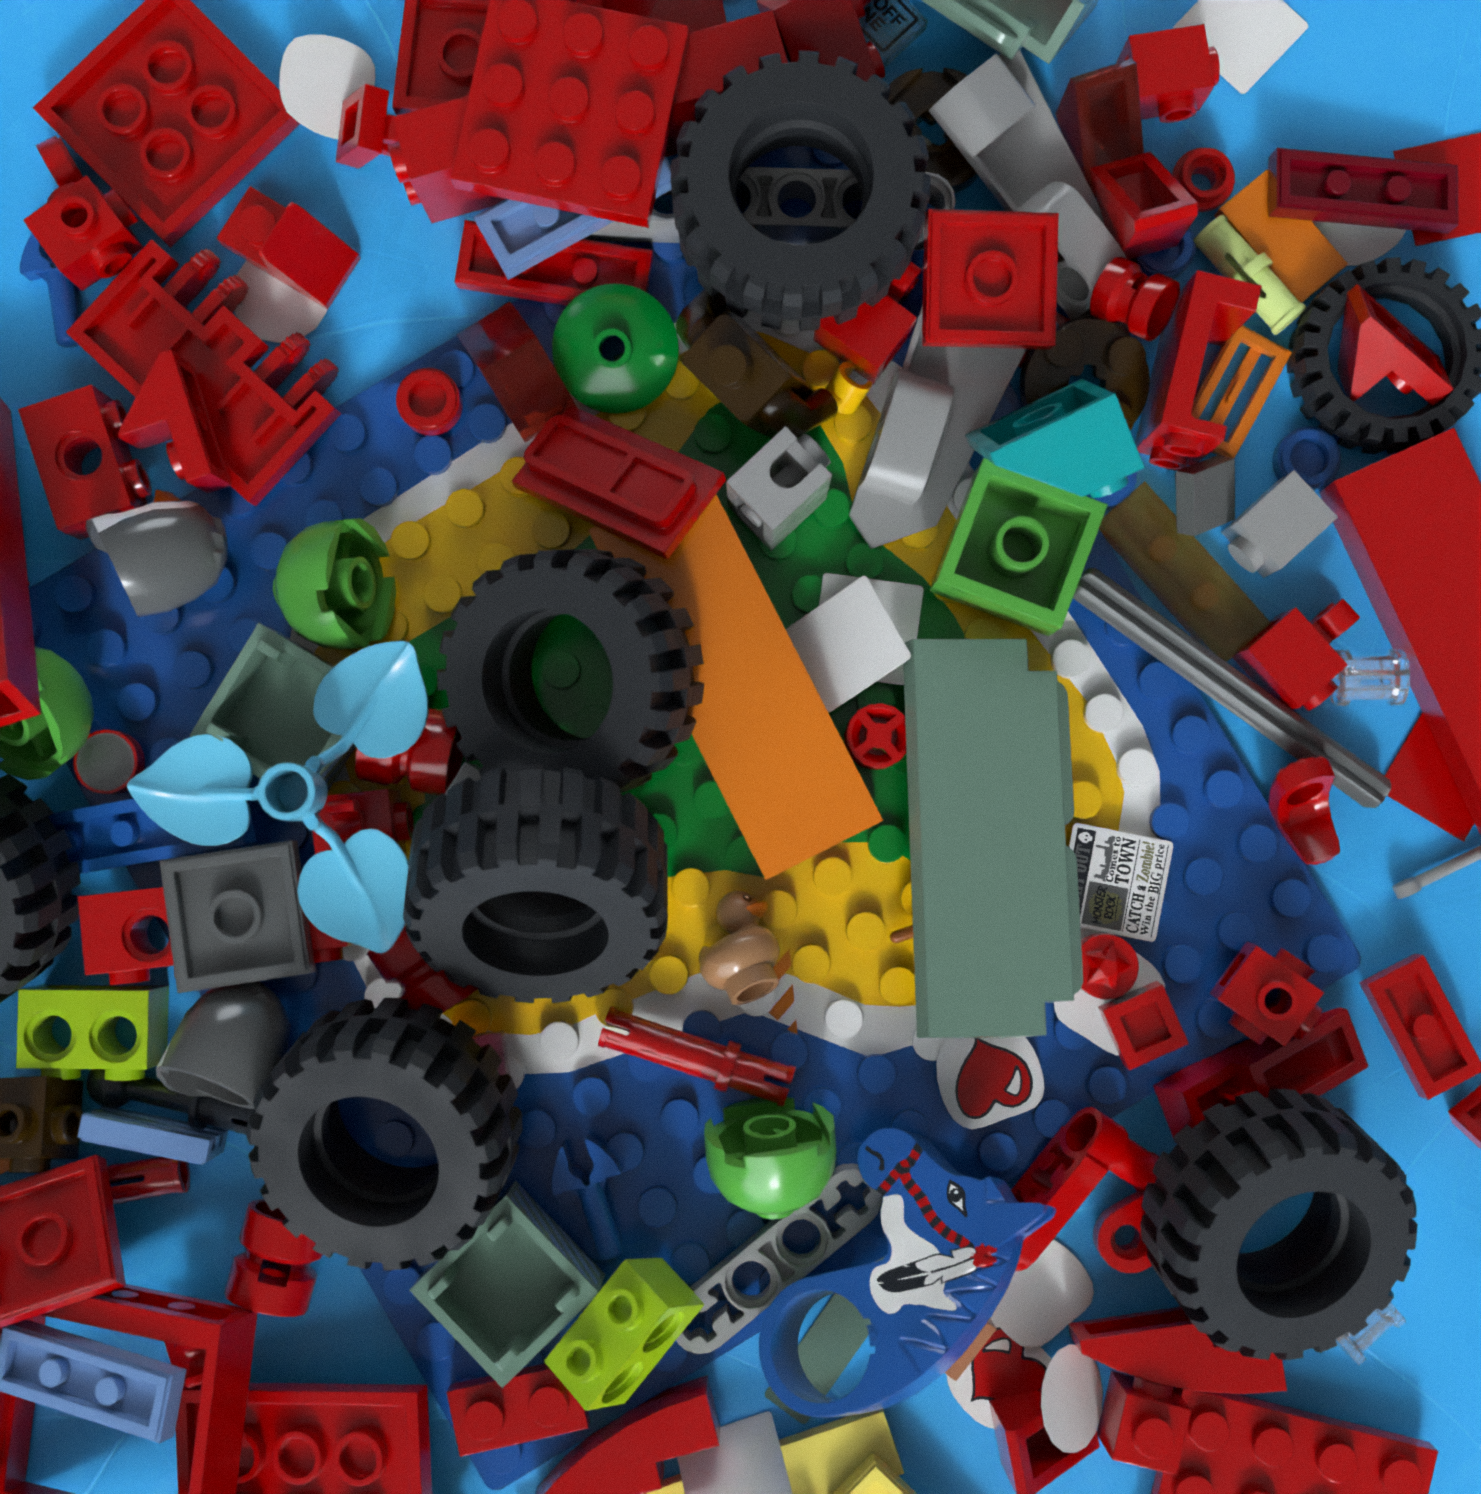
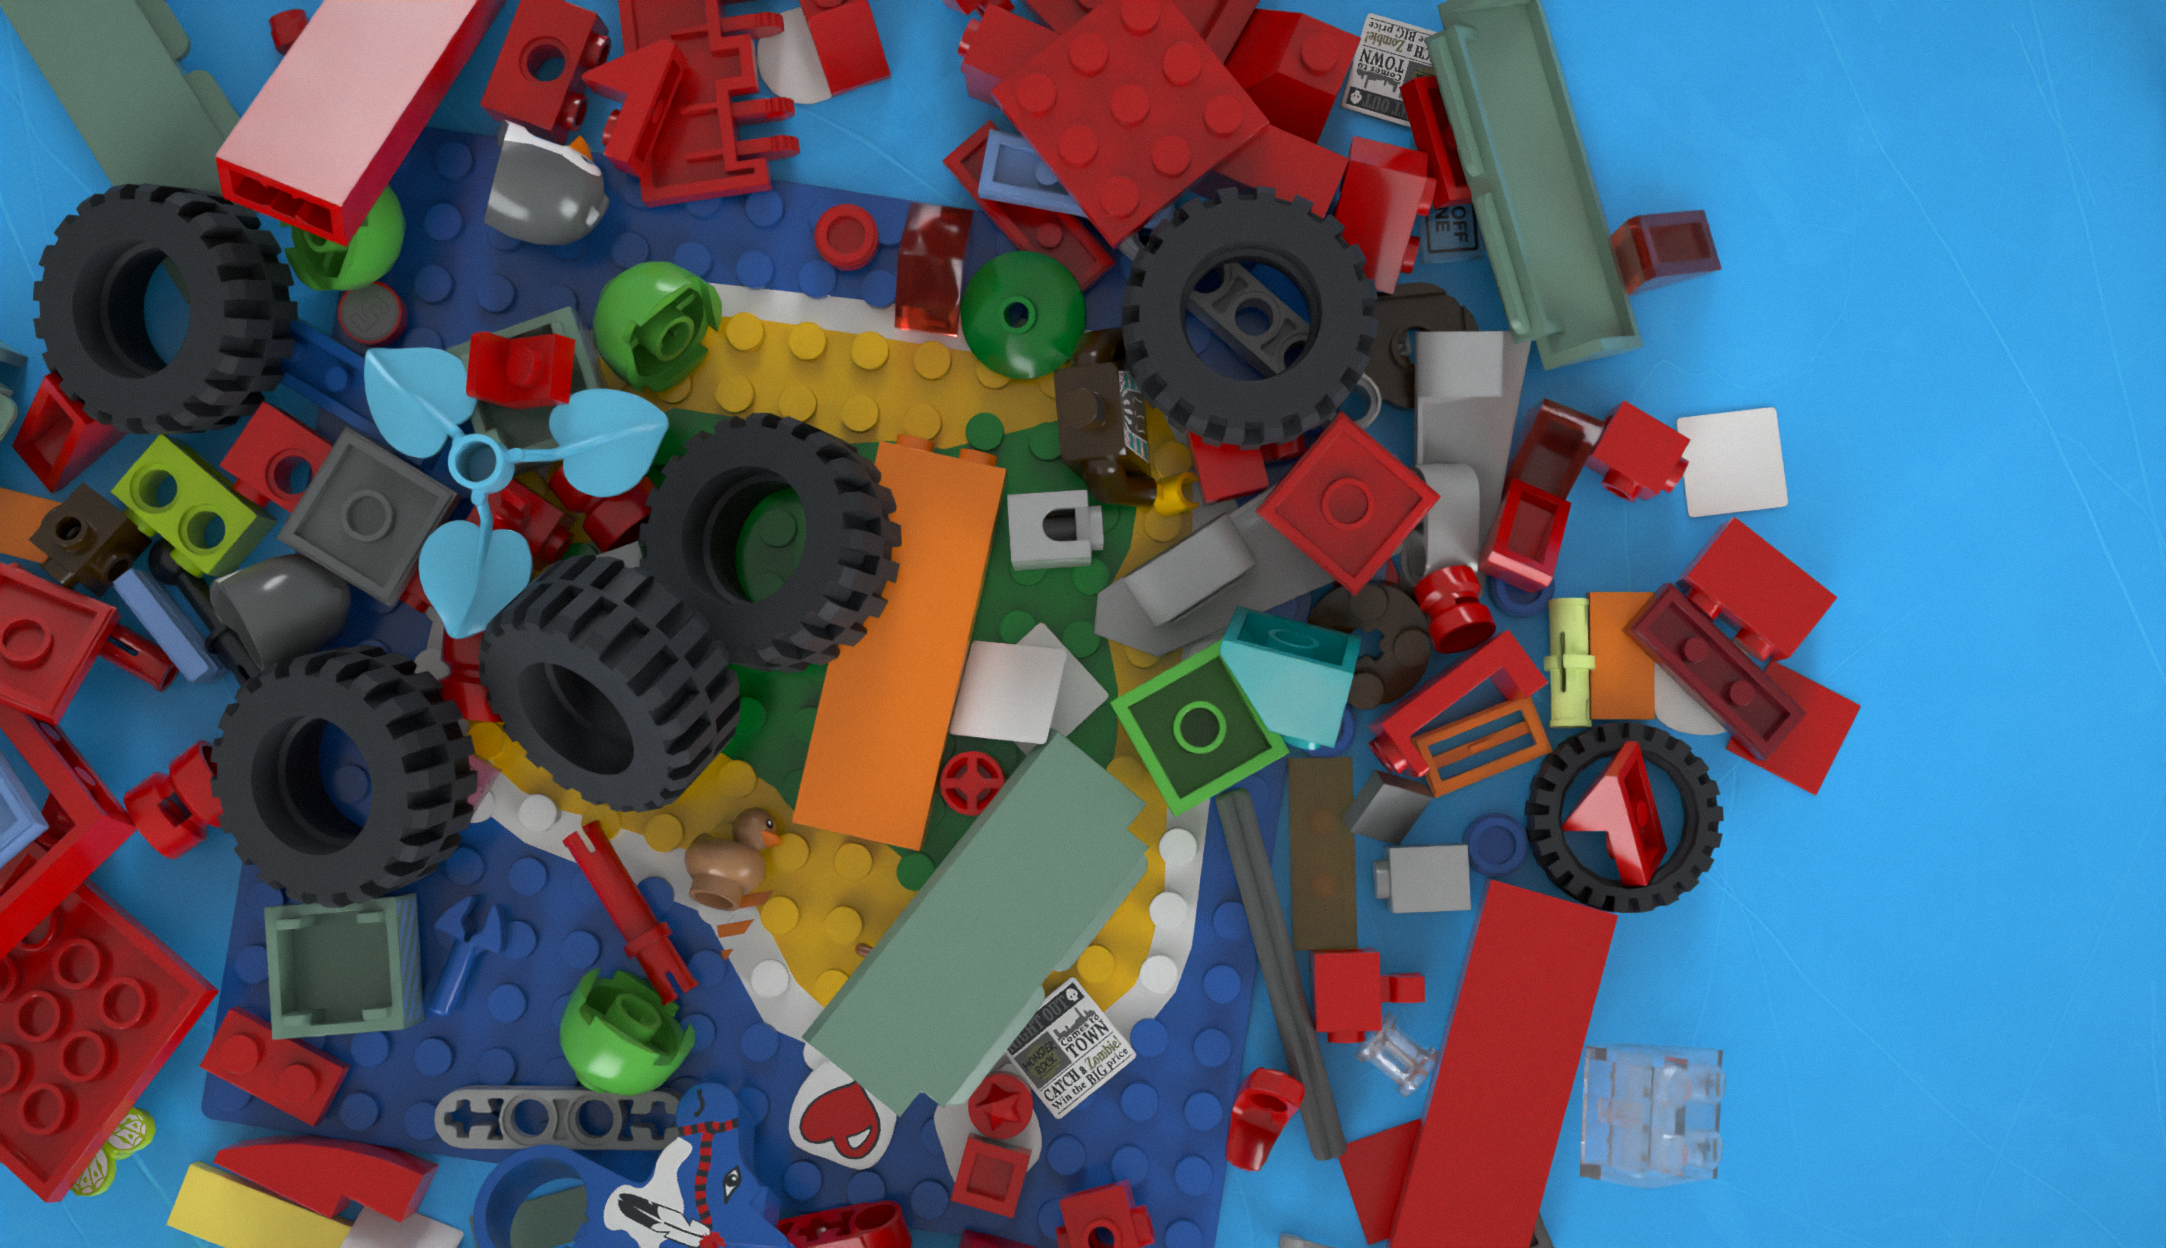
camera: 40 degrees right, 0 degrees up
(262, 702) = (520, 370): none -> red bracket
(617, 480) = (935, 420): red piece -> none
(623, 1333) = (398, 1075): lime brick -> none
(1215, 167) = (1616, 558): red plate -> none
(1345, 102) = (1754, 592): none -> red brick

